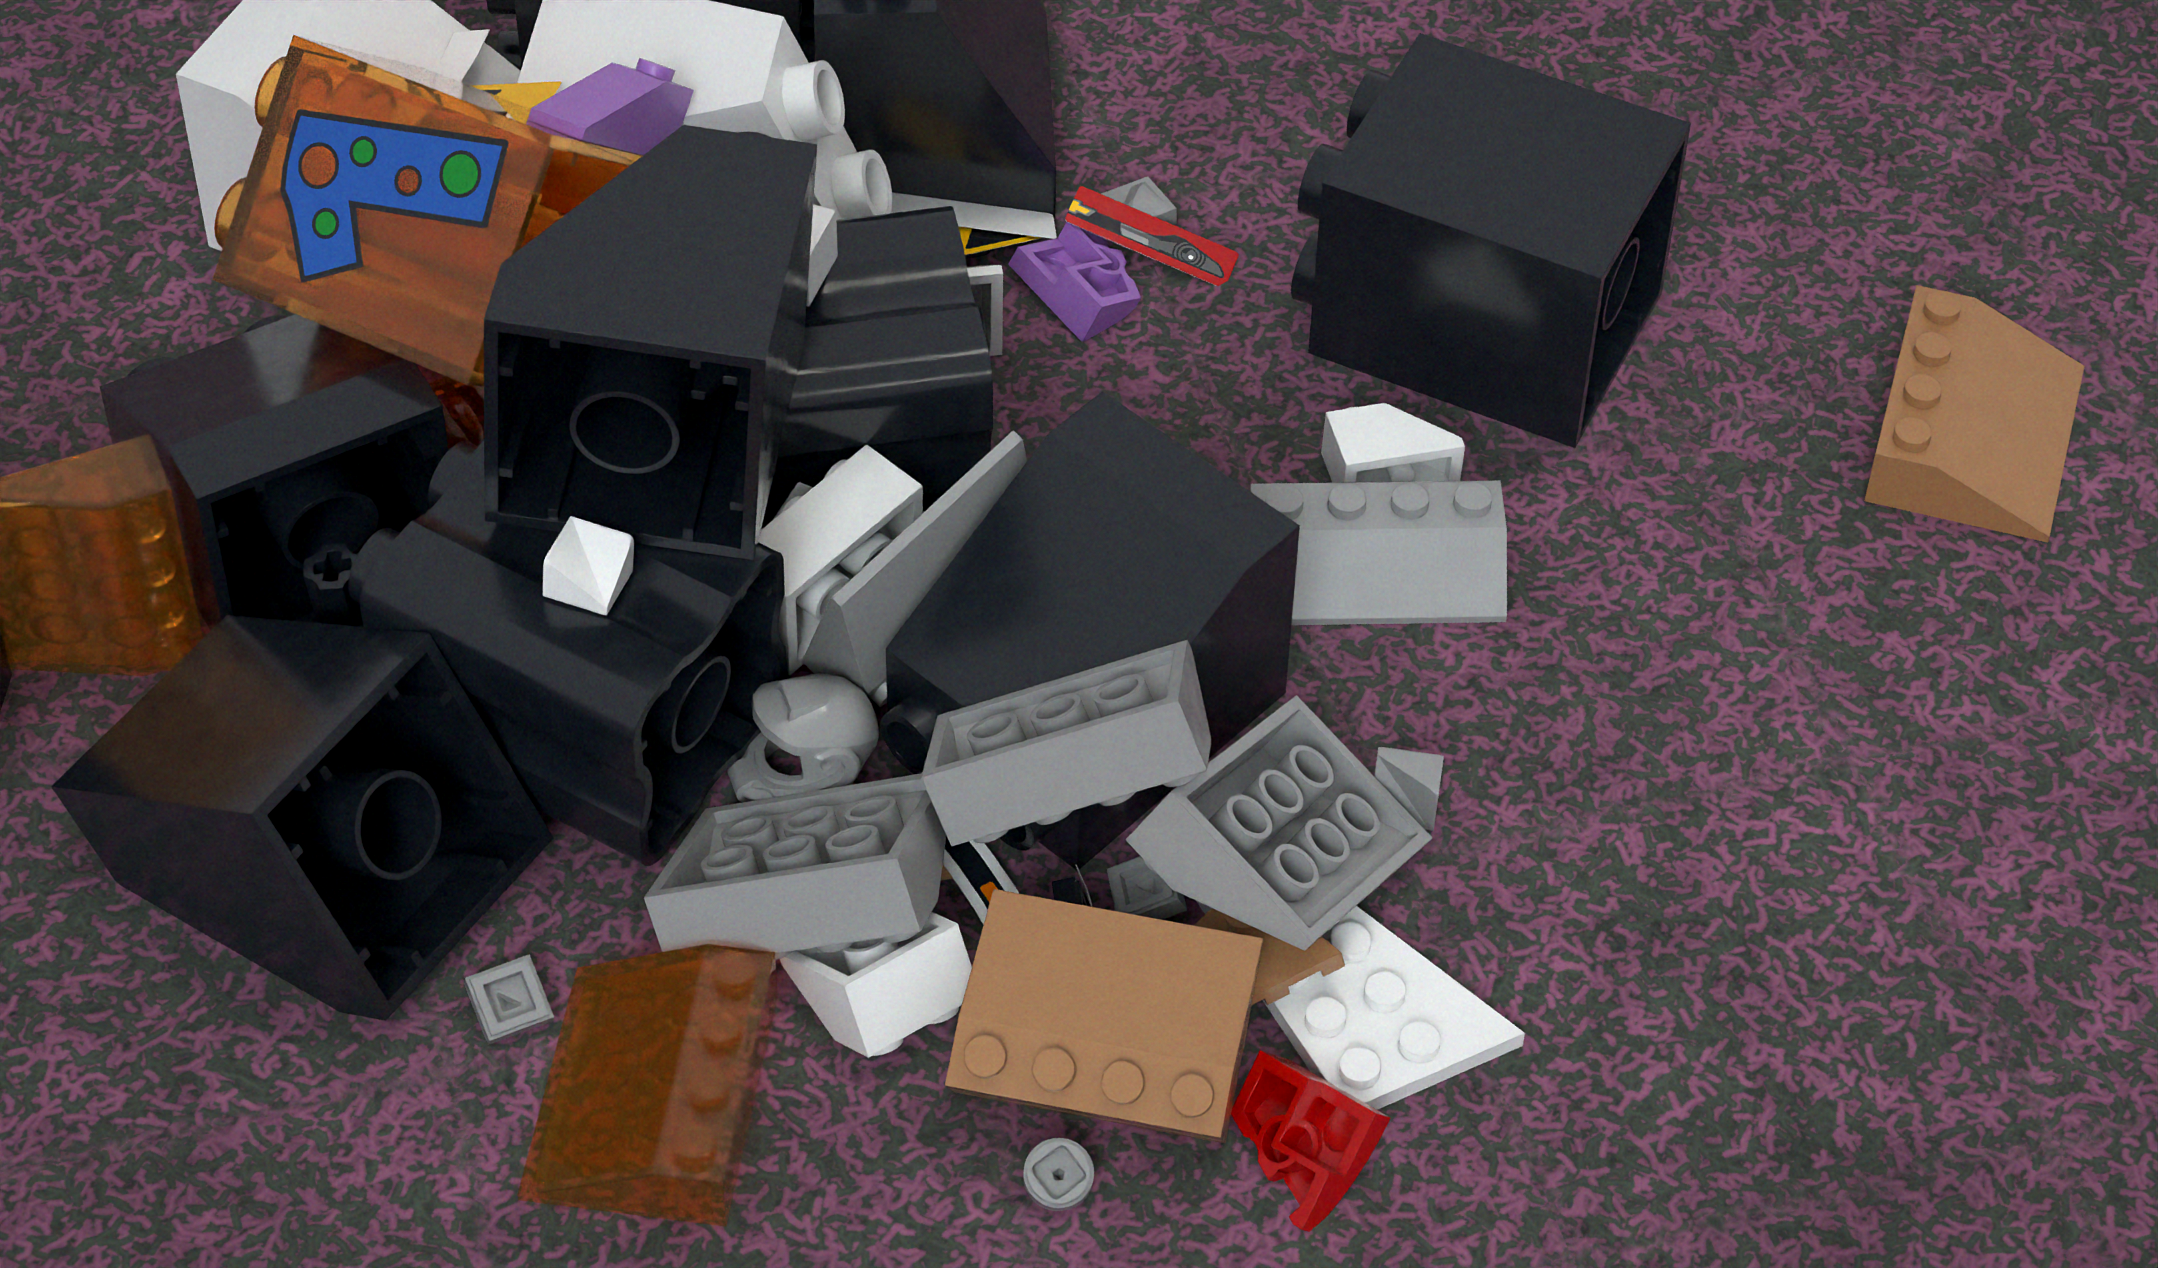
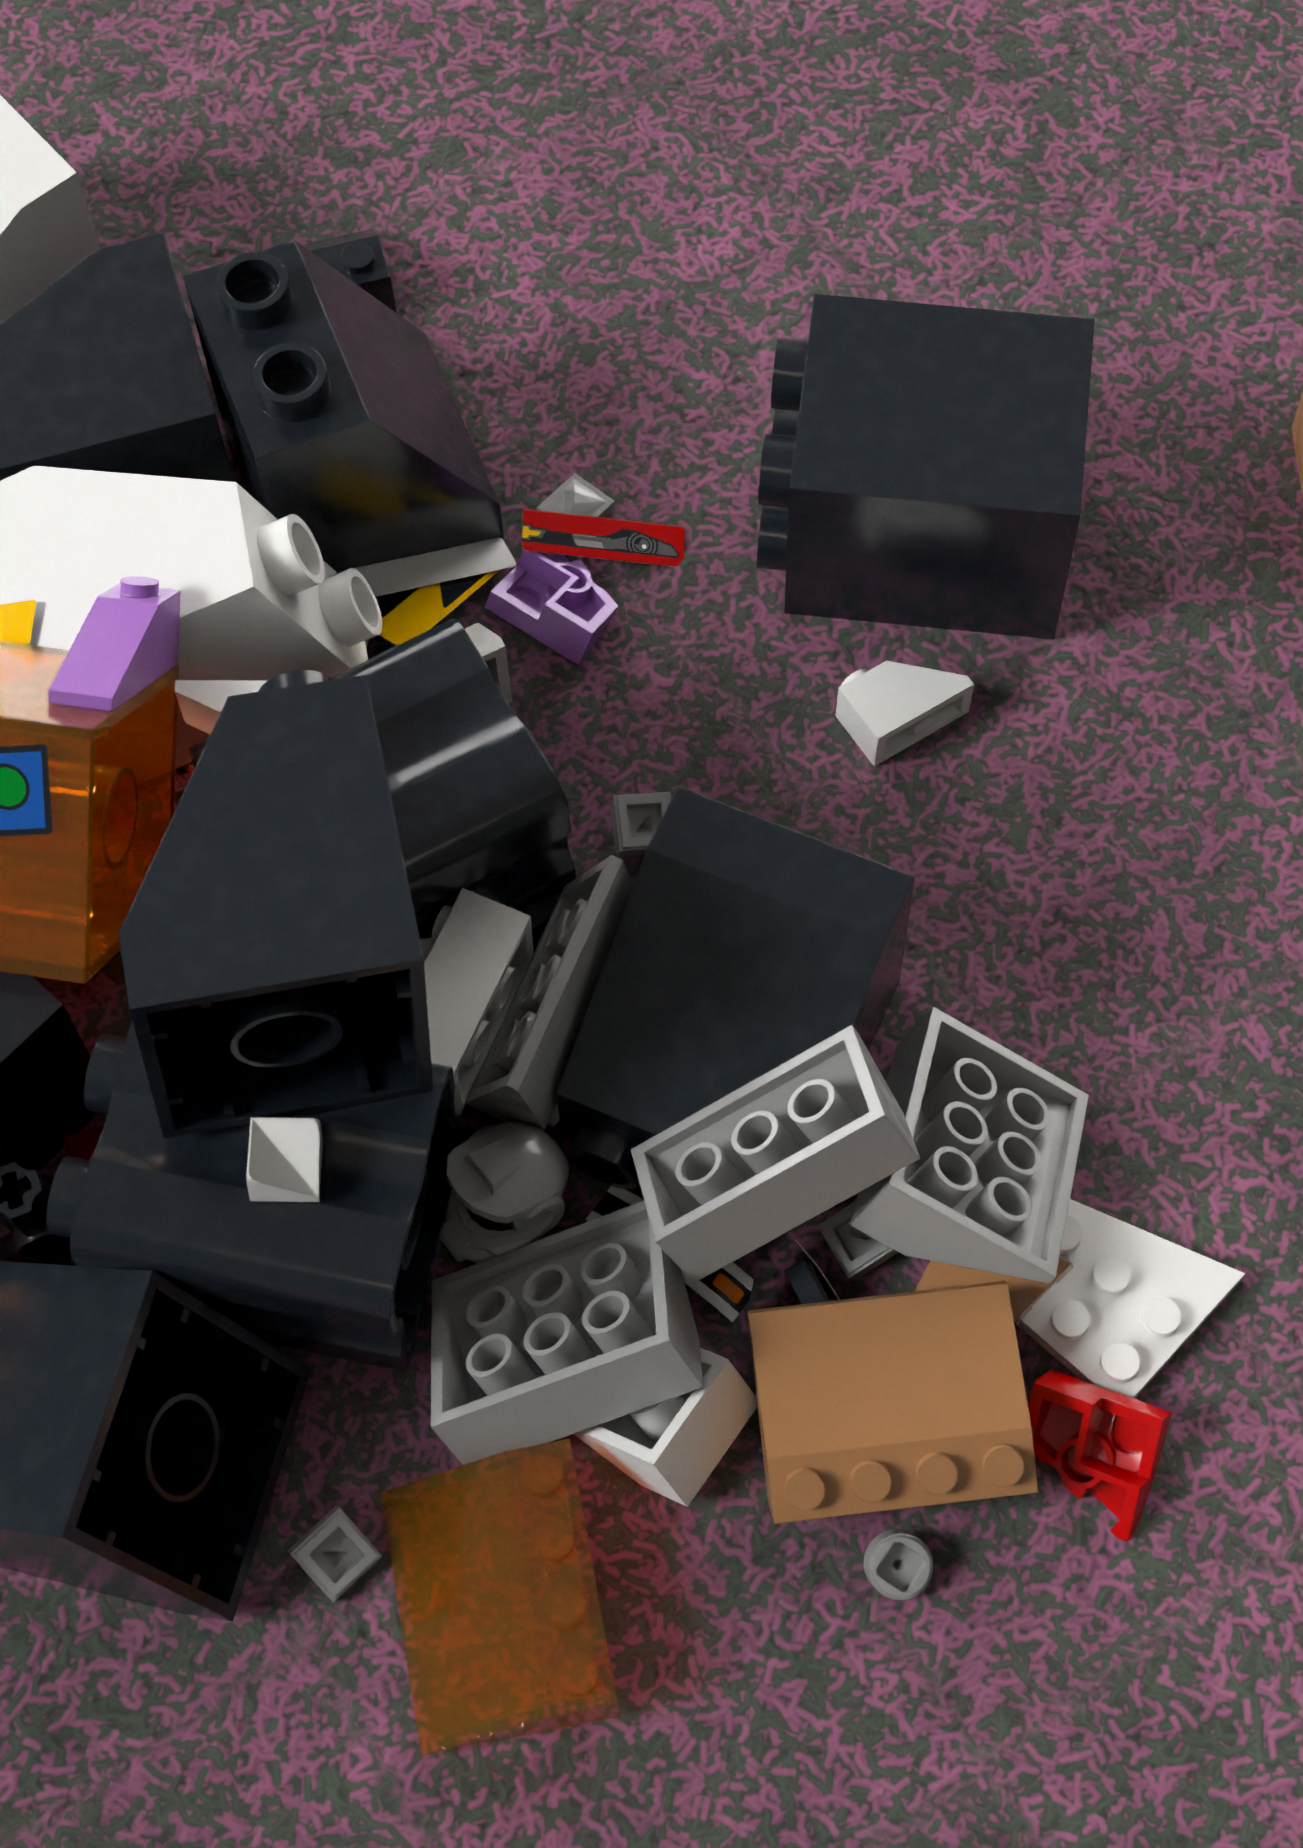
camera: 15 degrees left, 15 degrees up
(1396, 551) = (943, 806): light grey slope -> none
(1412, 780) = (1055, 1048): light grey slope -> none

